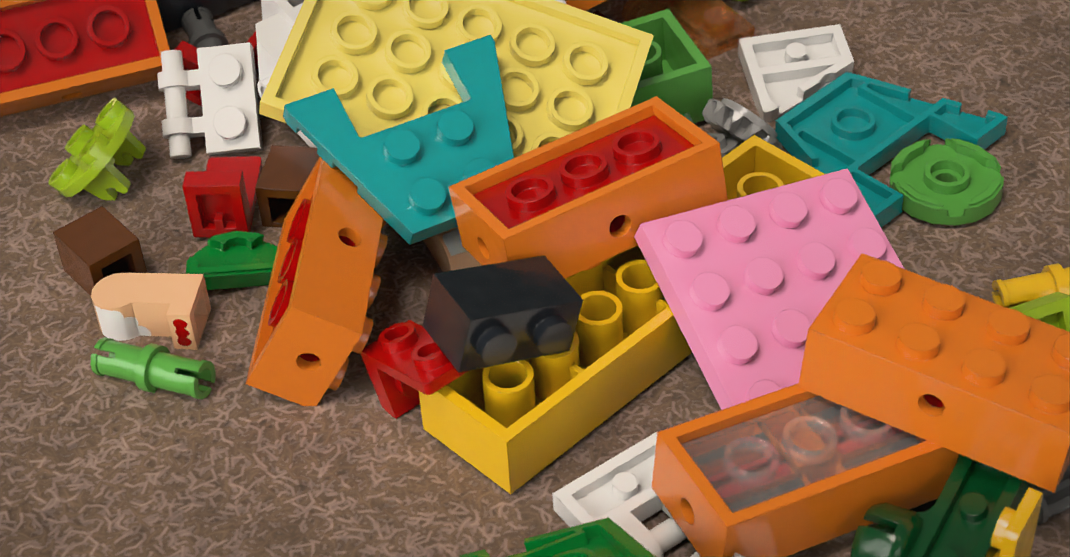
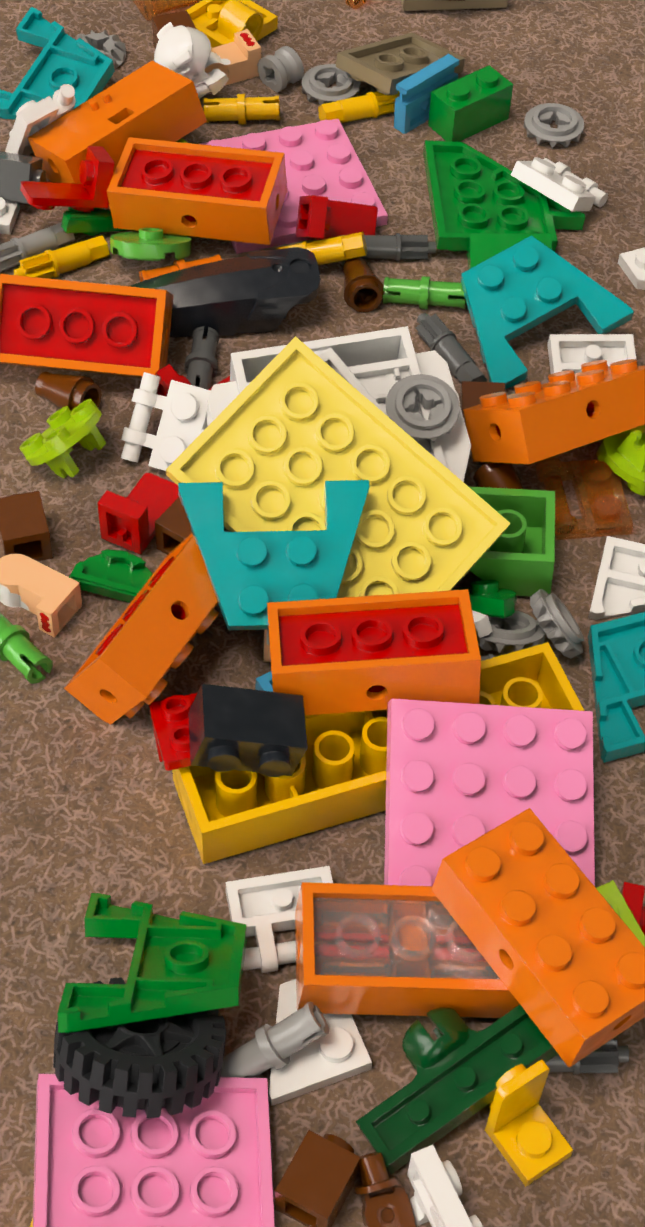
camera: 20 degrees right, 10 degrees up
(68, 114) = (67, 389): none -> reddish brown cone

